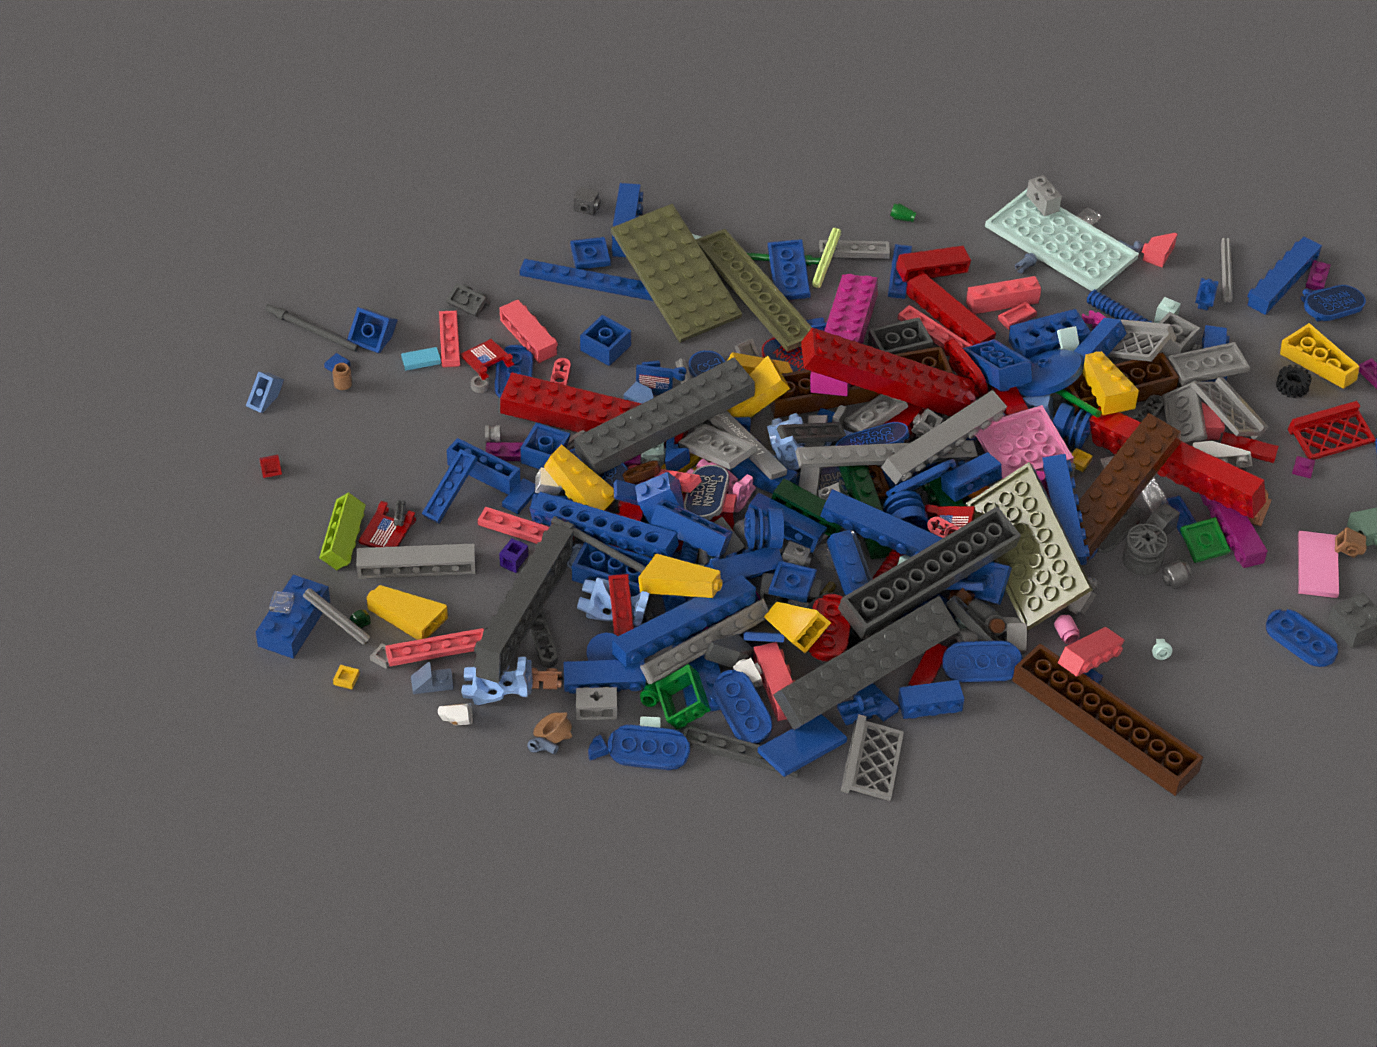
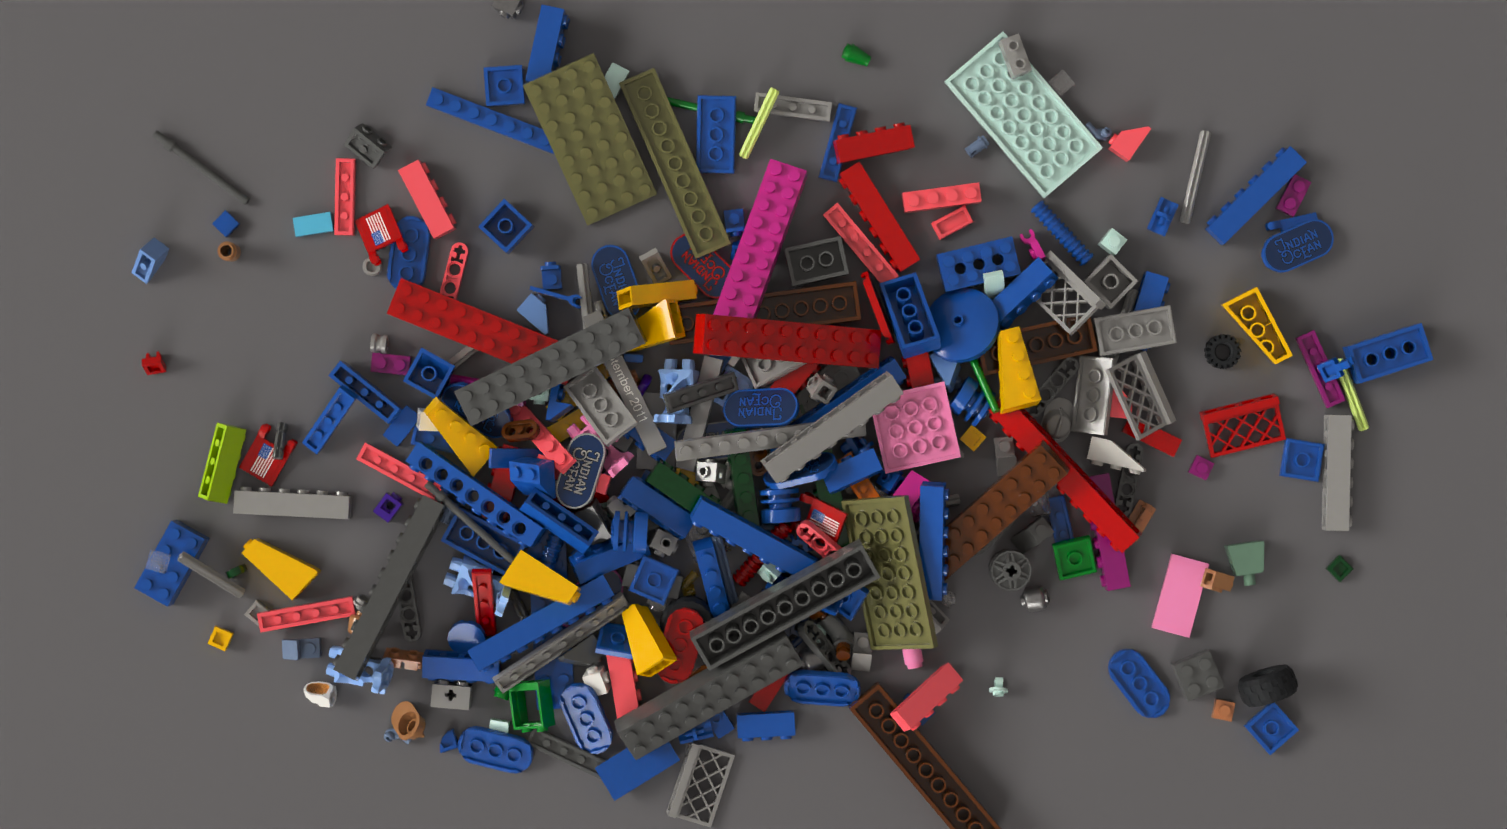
camera: 15 degrees right, 40 degrees up
(371, 329) = (263, 180): blue slope -> none

